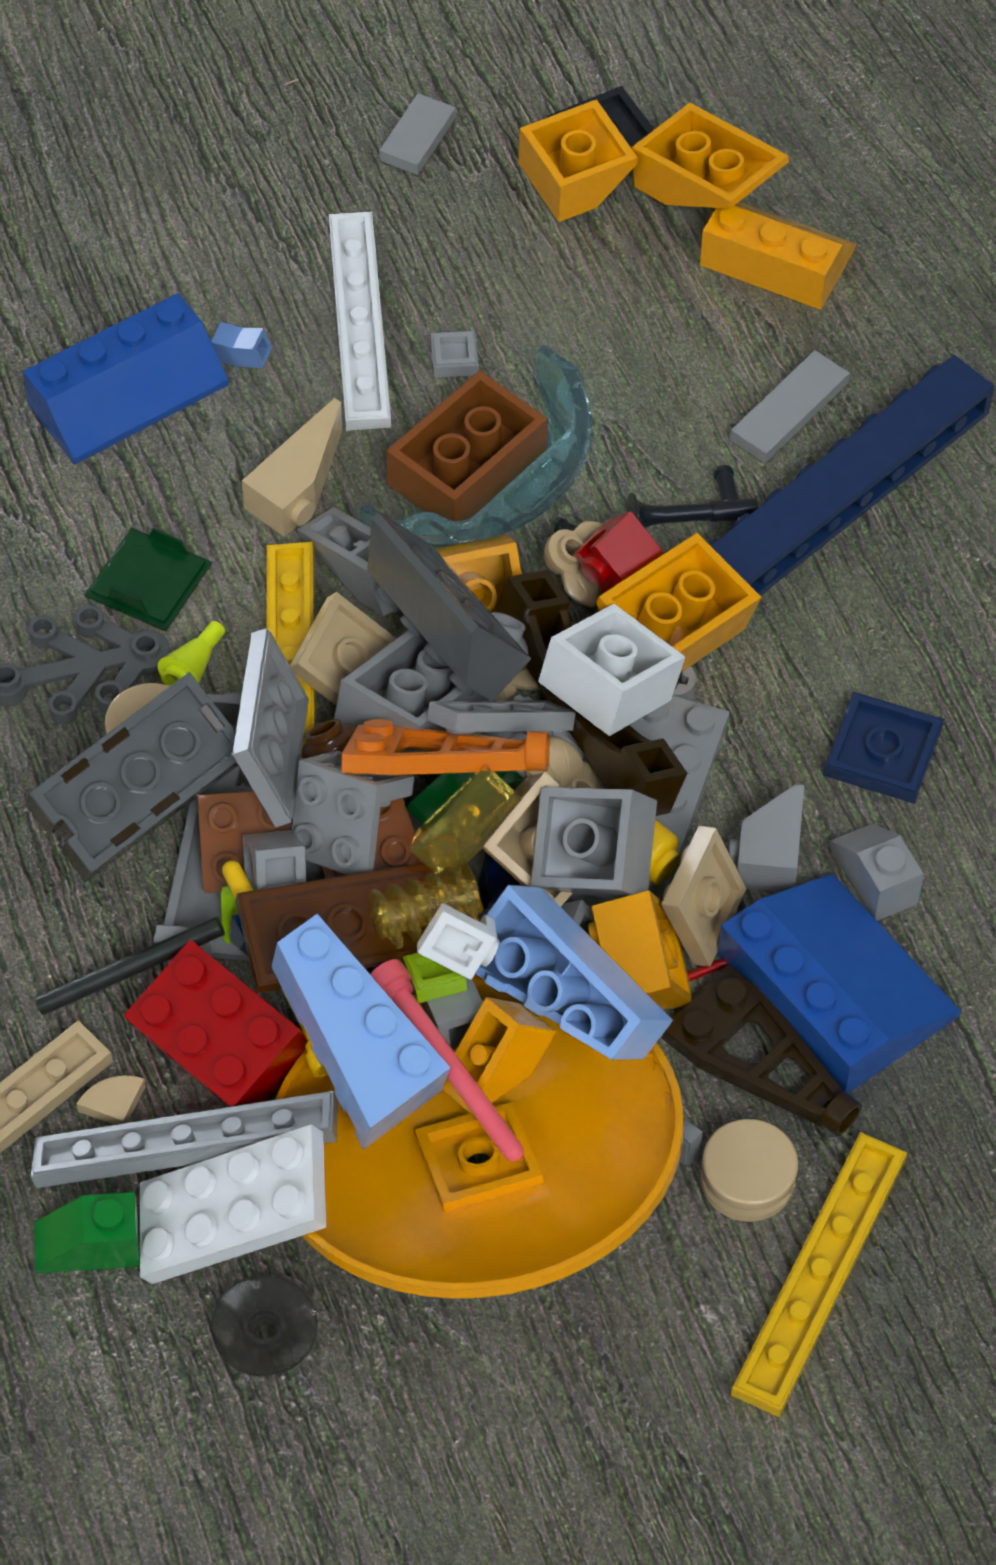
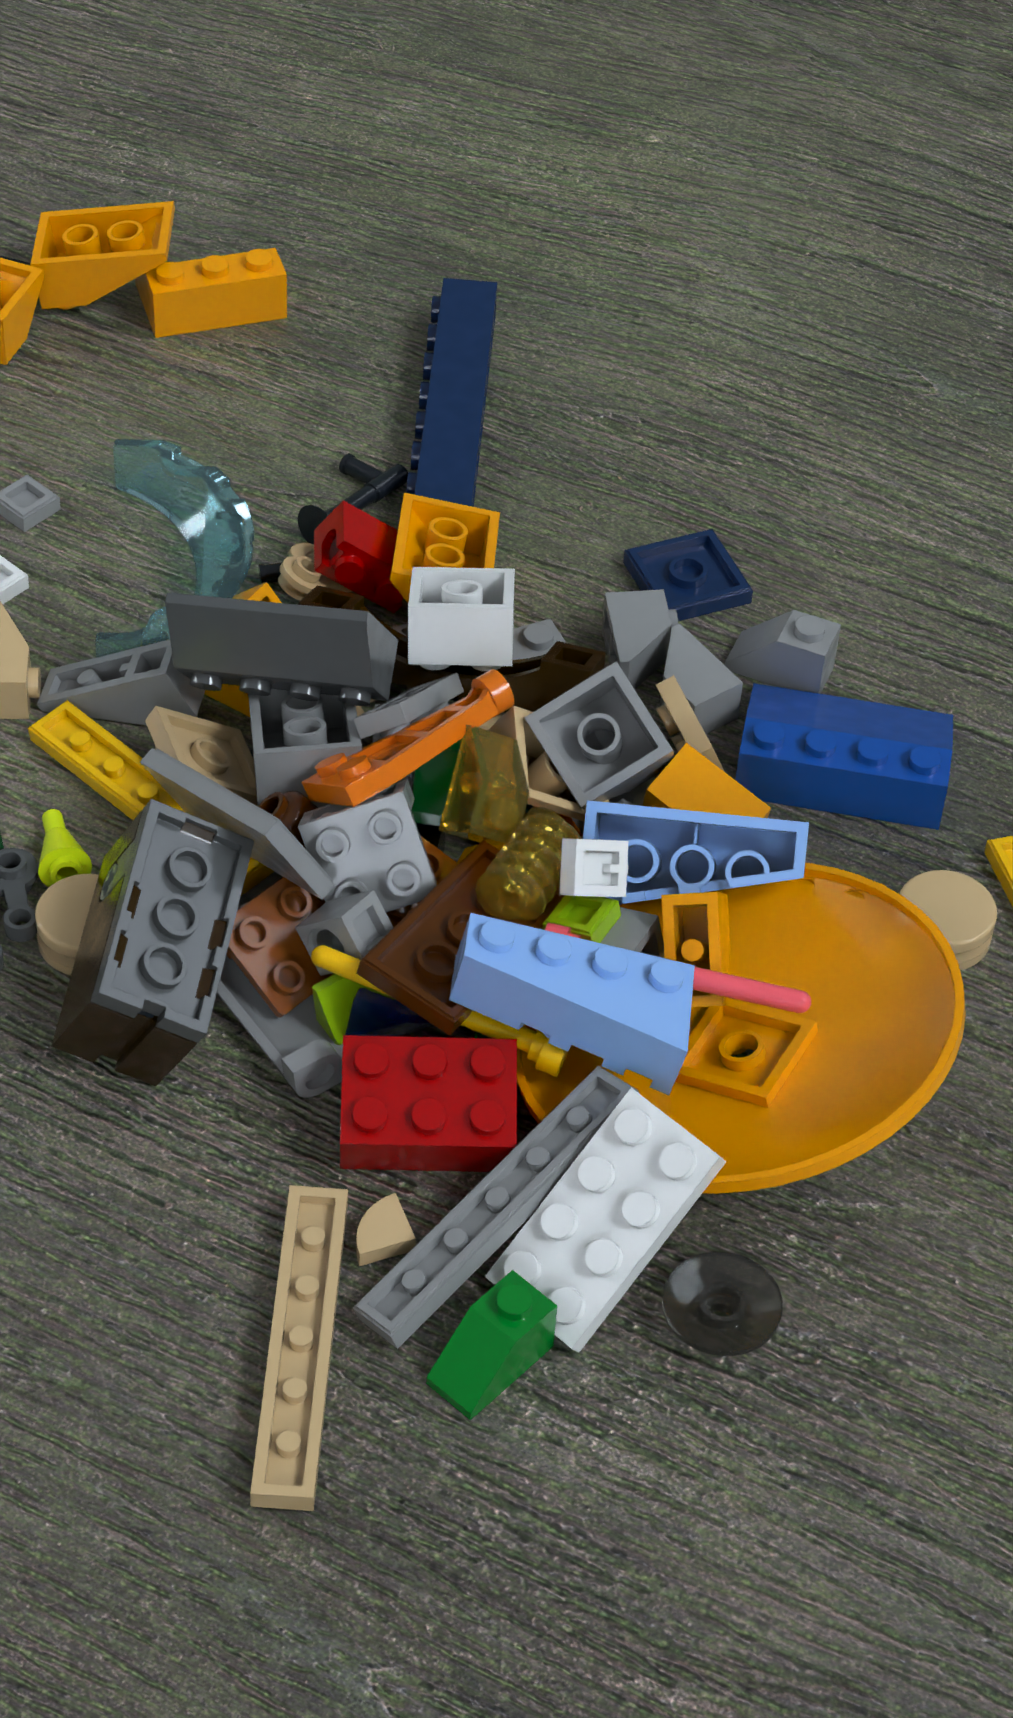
camera: 45 degrees left, 10 degrees down
(127, 966) = (290, 1110): pearl dark grey bar -> none
(466, 449) = (129, 552): dark orange brick -> none
(720, 1013) = (863, 817): dark brown plate -> none
(772, 767) = (637, 631): none -> light grey slope
(789, 406) = (344, 391): light grey tile -> none

